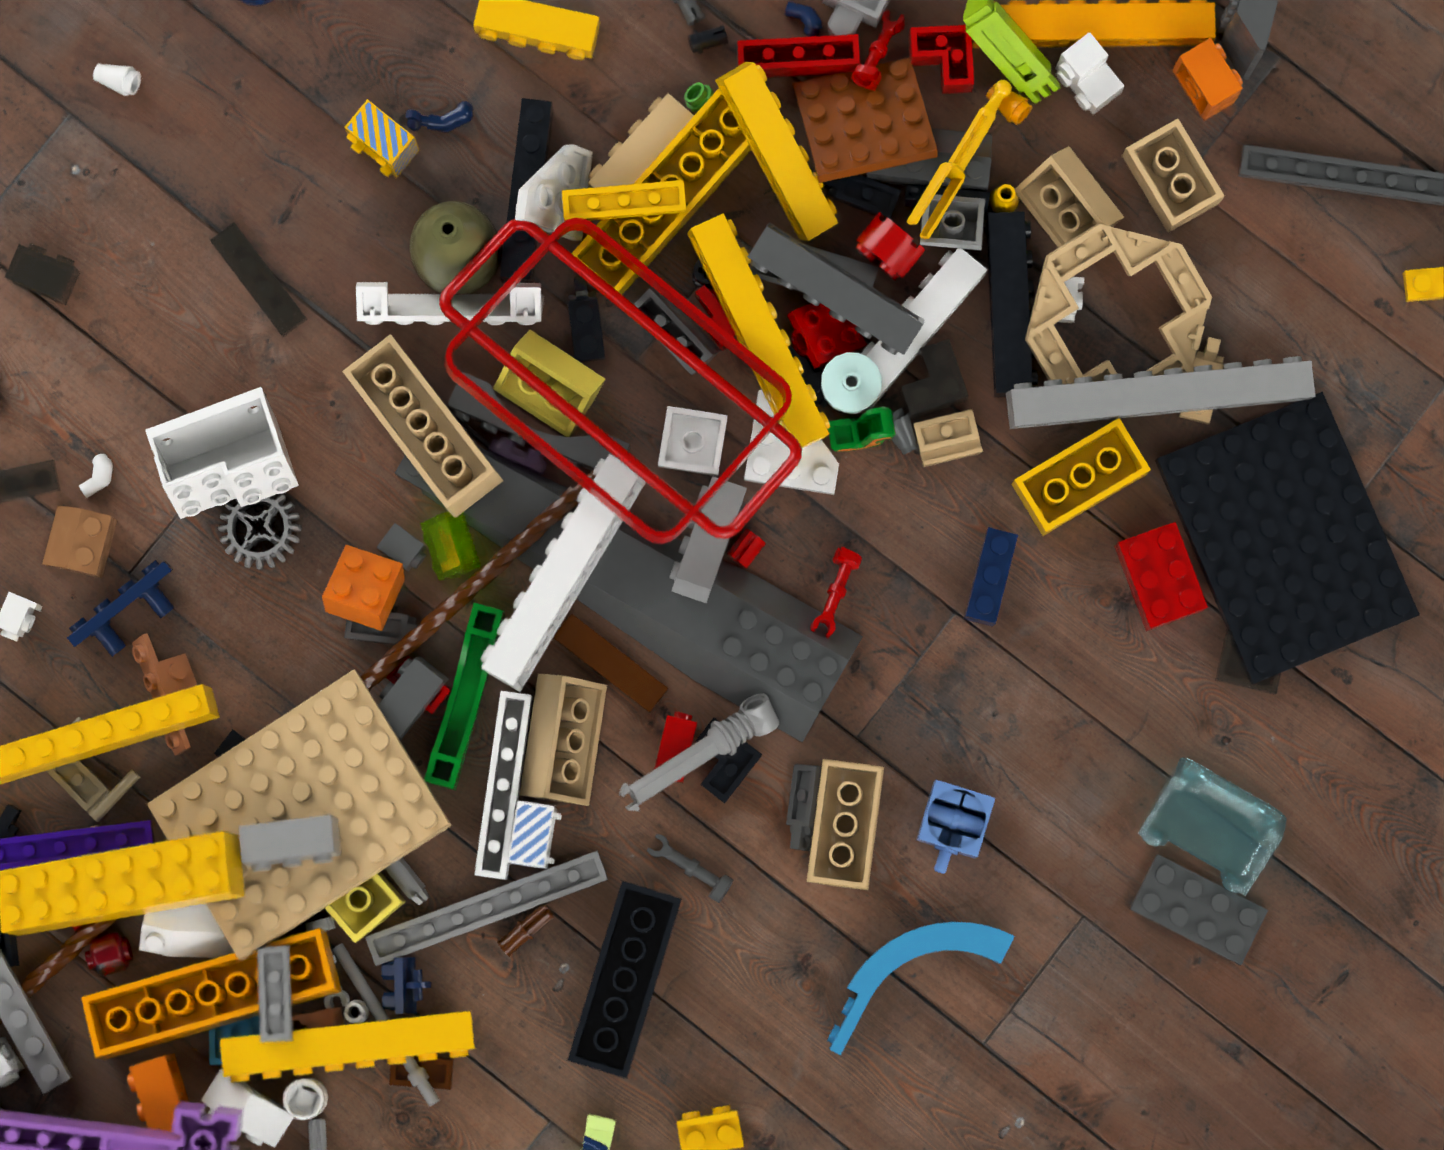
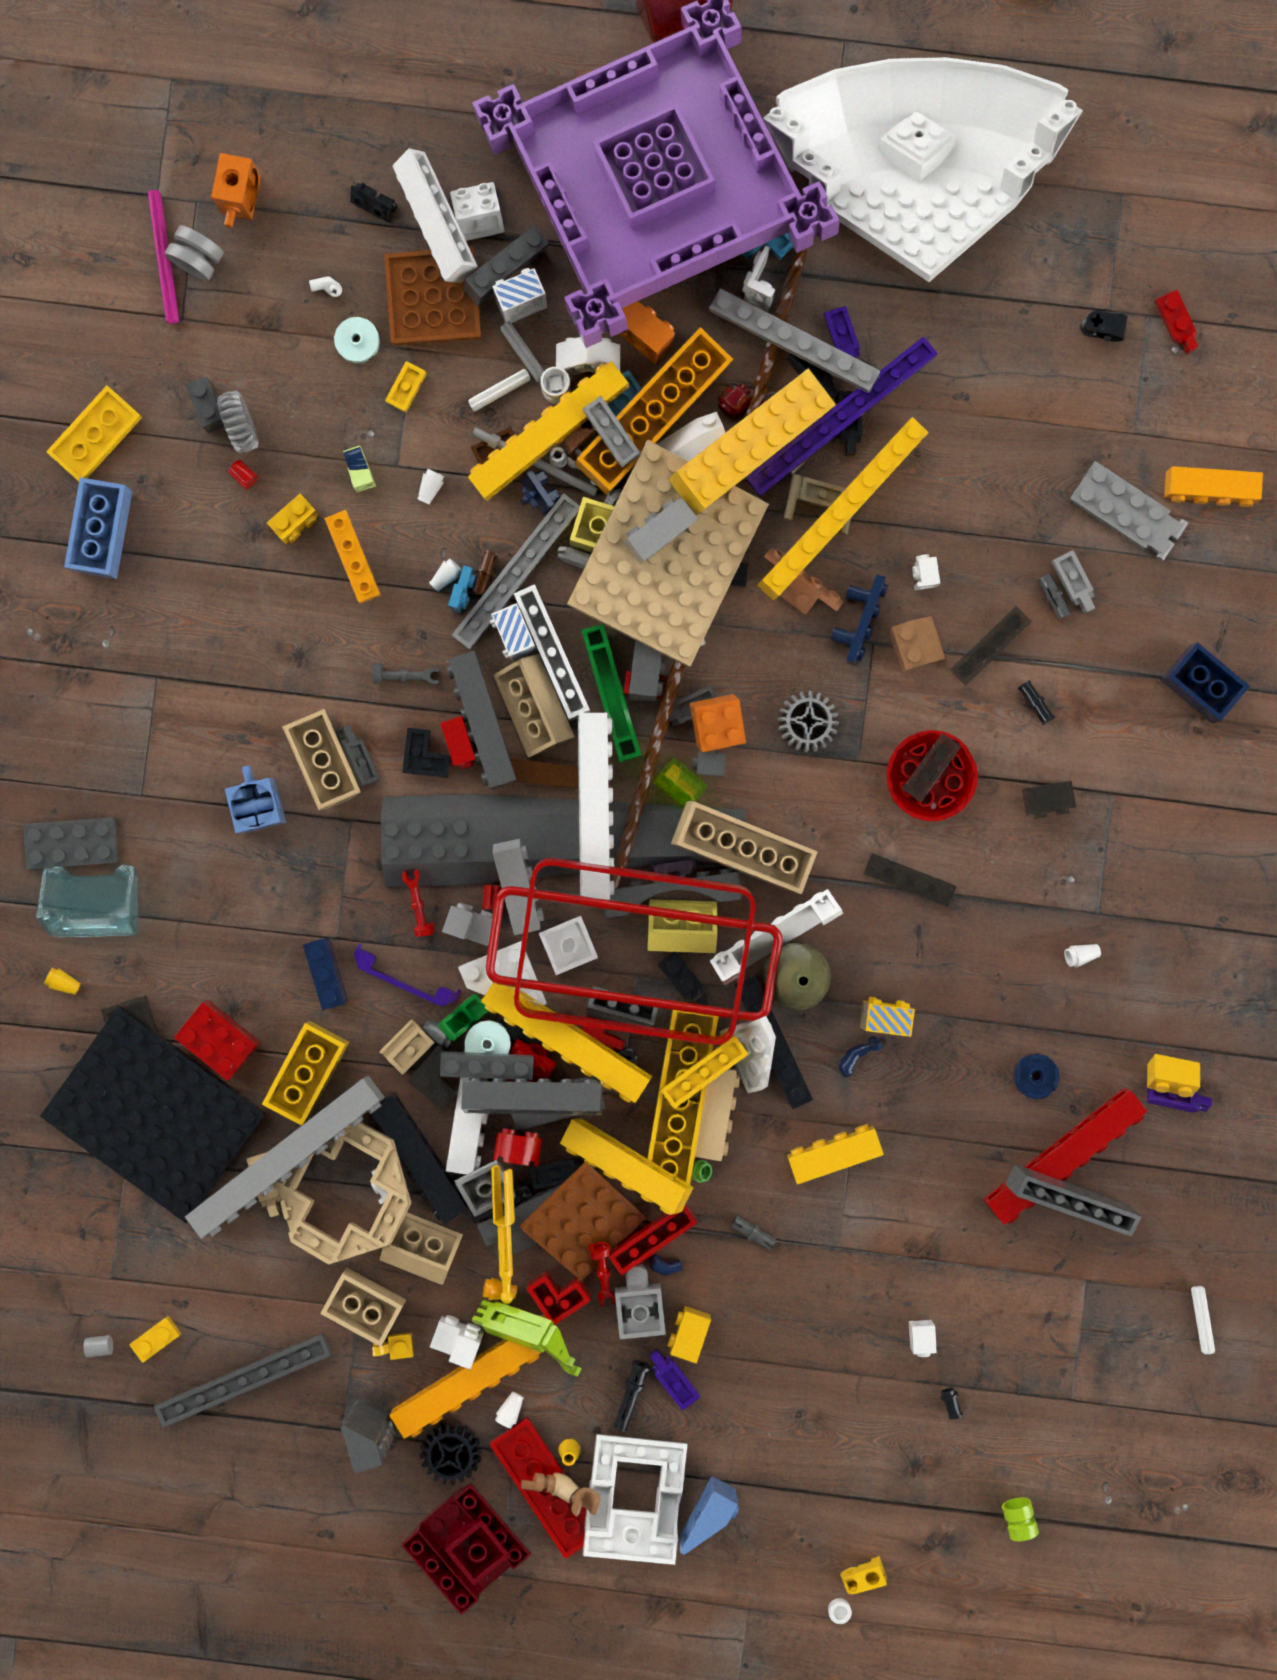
camera: 150 degrees right, 5 degrees up
(100, 477) = (929, 693): white arm -> none
(143, 353) = (951, 790): none -> red brick
(153, 387) = (931, 767): none -> clear smoke plate
(222, 455) = (859, 750): white piece -> none
(375, 1136) = (499, 390): none -> white axle
(525, 1072) = (430, 485): none -> white cone
(570, 914) = (459, 598): none -> dark azure plate
(571, 955) = (446, 574): none -> white cone
(624, 979) = (401, 578): black brick -> none
(632, 754) = (482, 720): none -> dark grey brick
(665, 1038) = (352, 556): none -> light orange plate
(707, 39) = (719, 1212): black pin -> none
(753, 719) = (419, 792): light grey piece -> none
(790, 531) = (468, 924): none -> light grey brick
(866, 357) = (486, 1065): none -> dark grey plate
(873, 469) = (366, 961): none -> dark purple piece
(956, 936) = (238, 707): dark azure arch -> none
(1000, 204) = (464, 1218): yellow cone -> none
(1162, 109) = (398, 1346): none -> yellow plate
(1208, 78) = (378, 1385): orange brick -> none
(1303, 753) = (61, 981): none -> yellow cone

